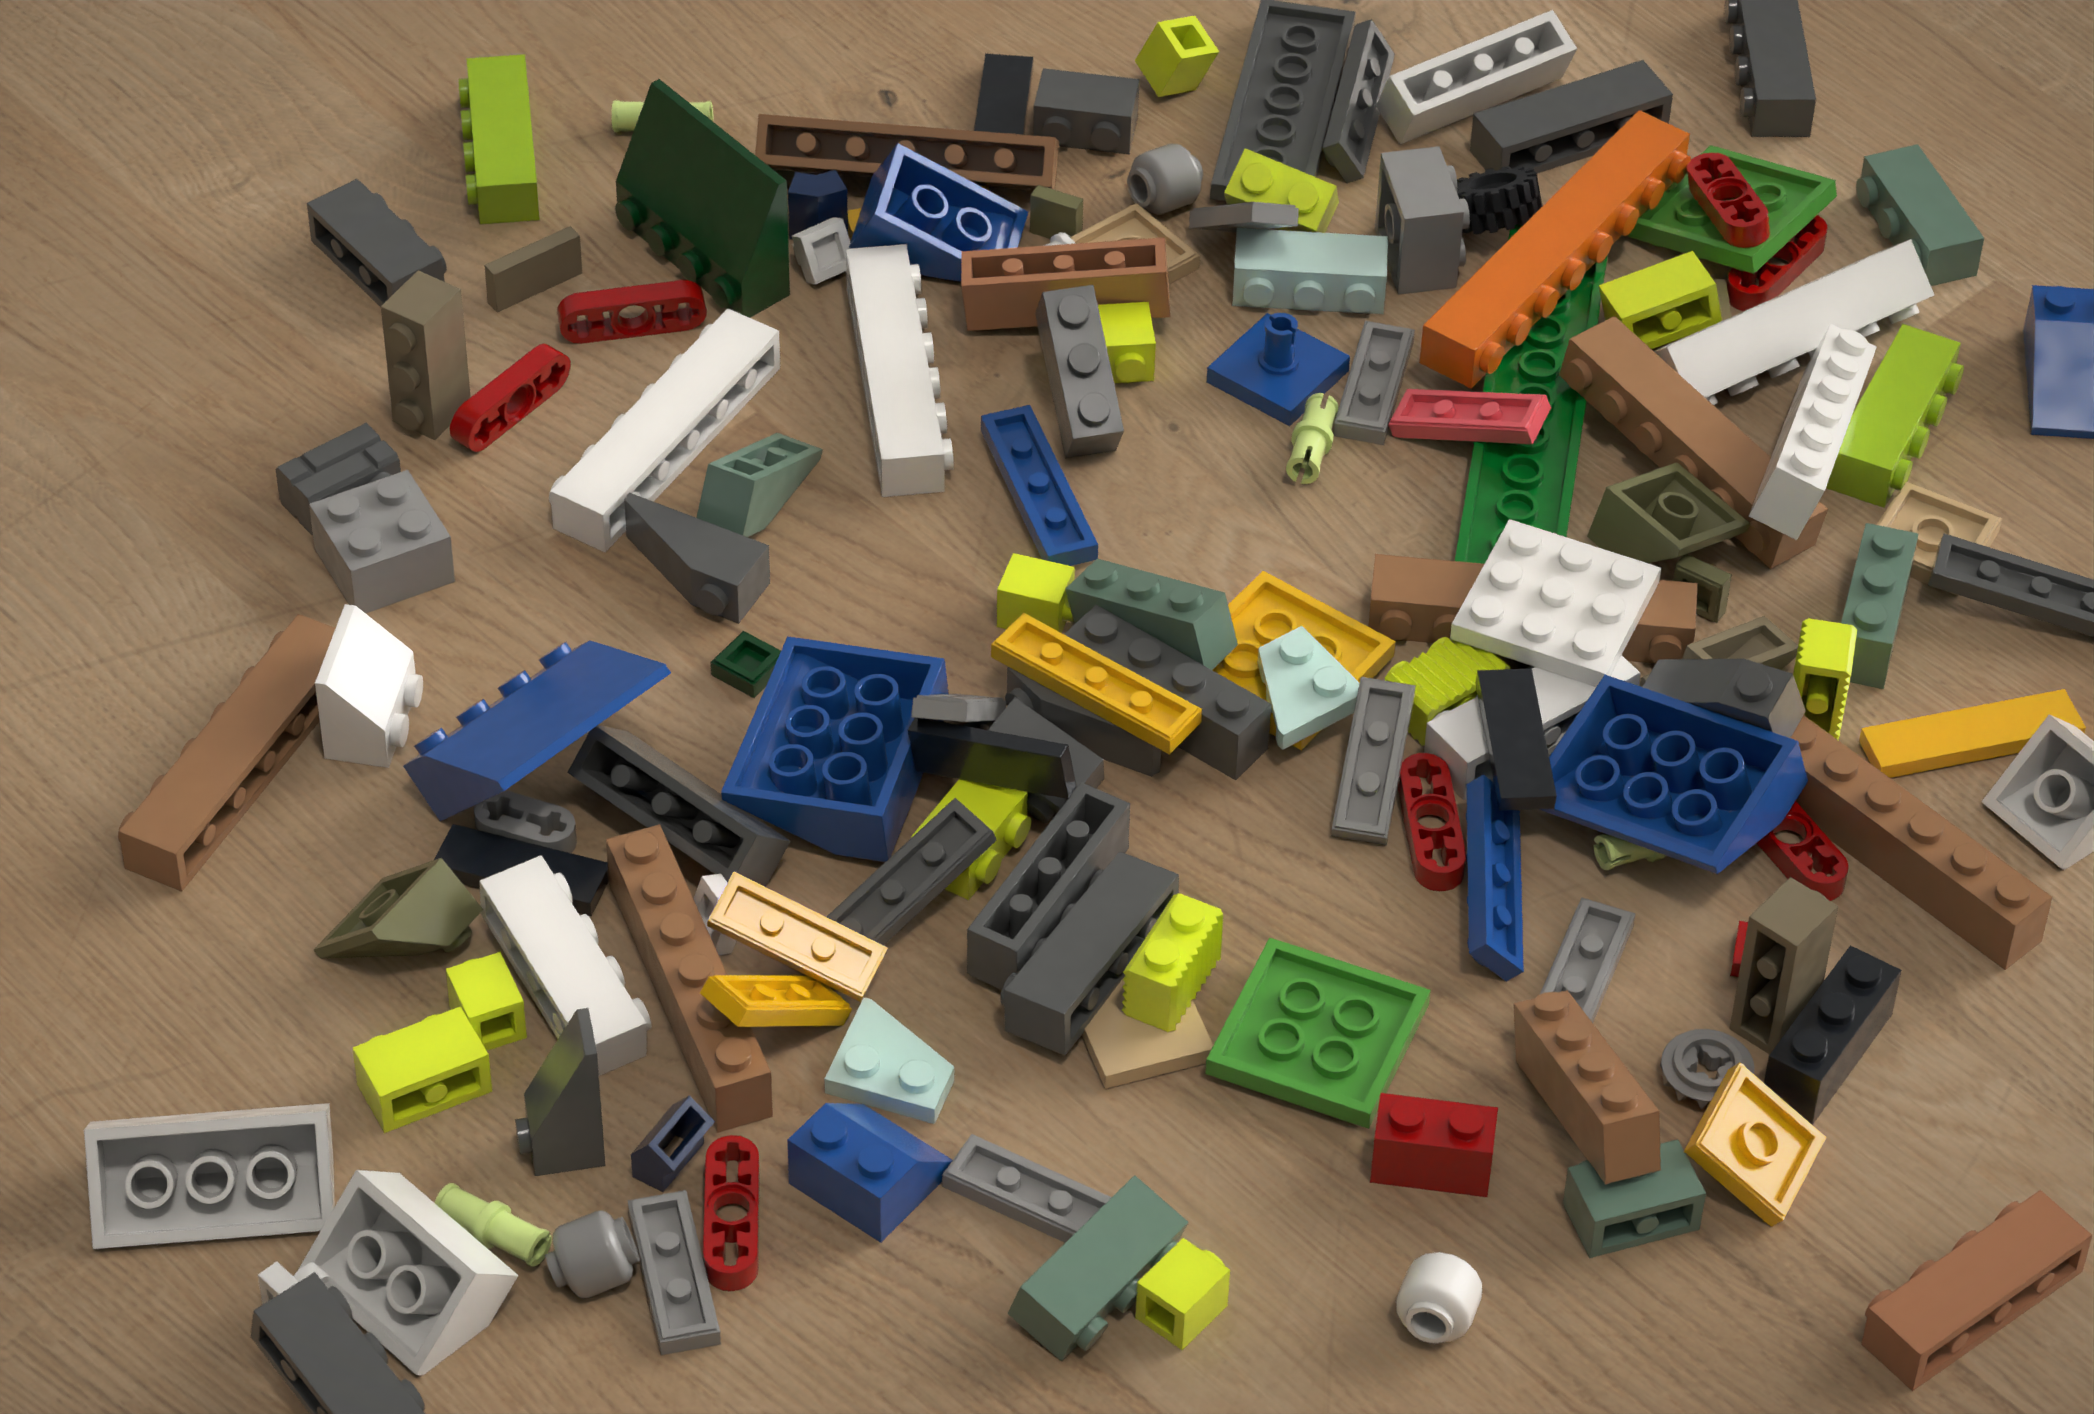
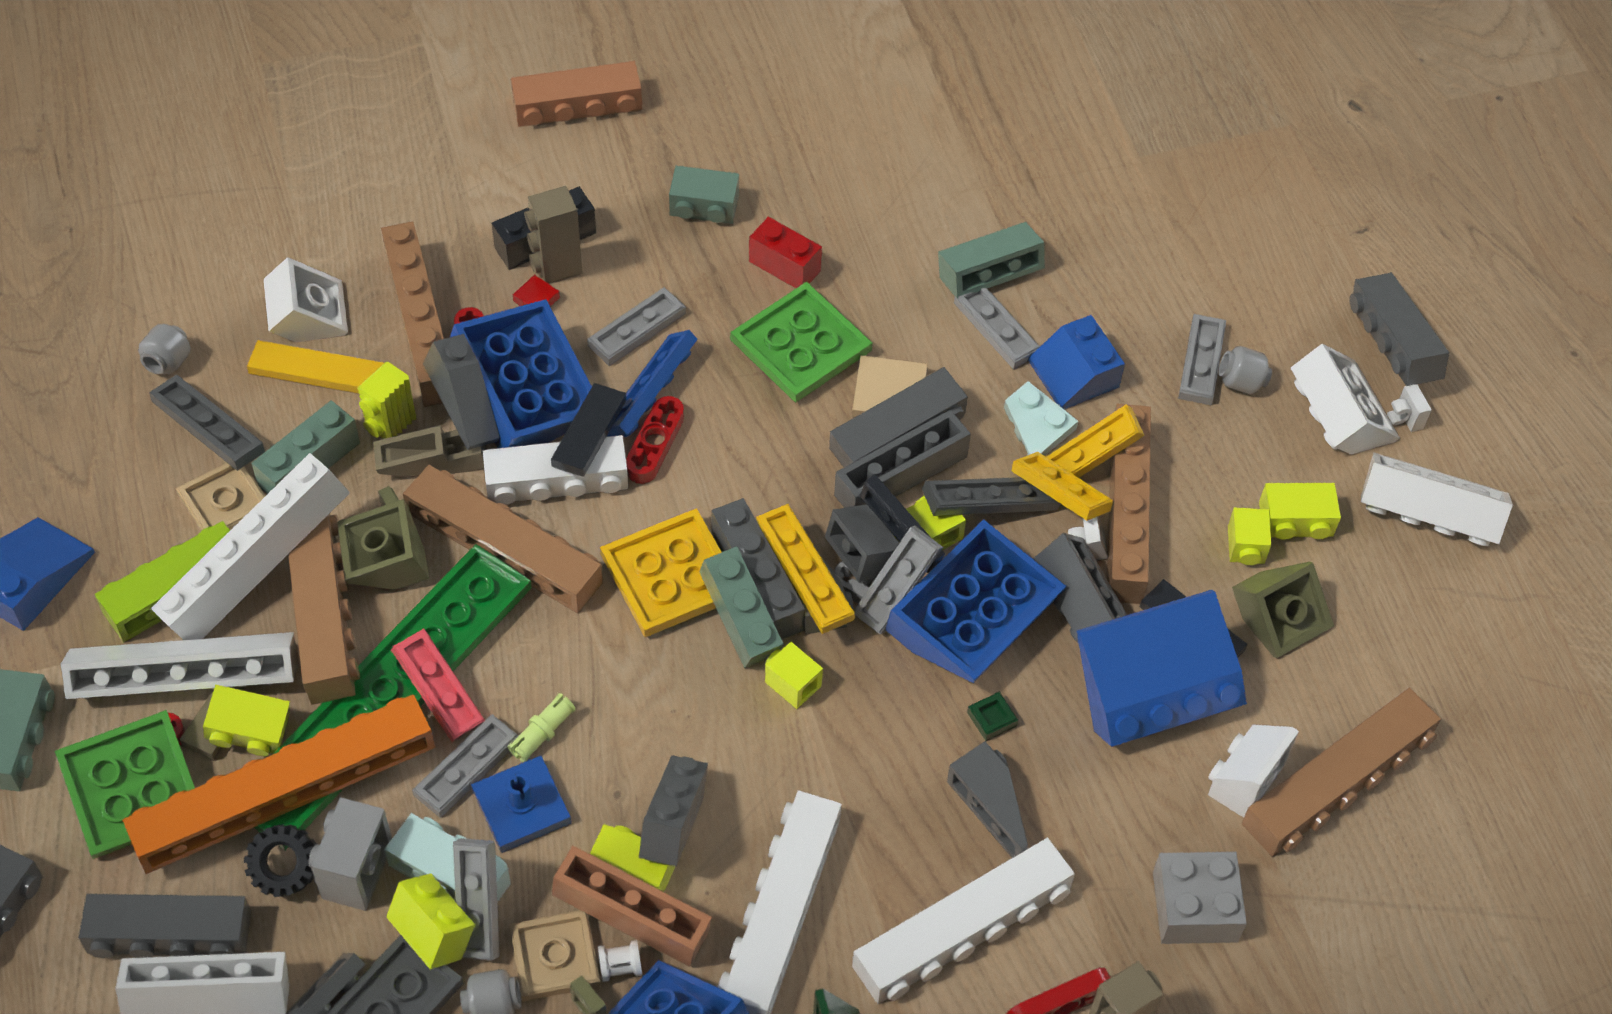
camera: 155 degrees left, 10 degrees up
(334, 468) = (1208, 972): dark grey brick -> none
(495, 1225) = (1290, 412): yellowish green pin -> none
(561, 960) = (1198, 531): white brick -> none
(565, 1105) = (1236, 431): dark grey slope -> none
(649, 1161) = (1179, 414): dark blue piece -> none
(743, 1231) = (1158, 362): red beam -> none
(755, 482) = (922, 845): sand green slope -> none
(1039, 486) = (740, 766): blue plate -> none
(1173, 962) = (862, 386): neon yellow brick -> none
(1183, 1293) = (952, 231): neon yellow brick -> none
(1304, 686) = (677, 530): light aqua wing -> none
(1373, 761) = (668, 471): light grey tile -> none
(1439, 1297) = (833, 183): white head -> none
(1442, 679) = (590, 509): neon yellow brick -> none
(1555, 603) = (498, 506): white plate -> none
(1587, 1086) = (696, 230): medium nougat brick -> none
(1714, 1050) = (606, 238): light grey gear -> none
(1716, 178) = (135, 738): red beam -> none
(1755, 1144) = (627, 189): yellow tile -> none

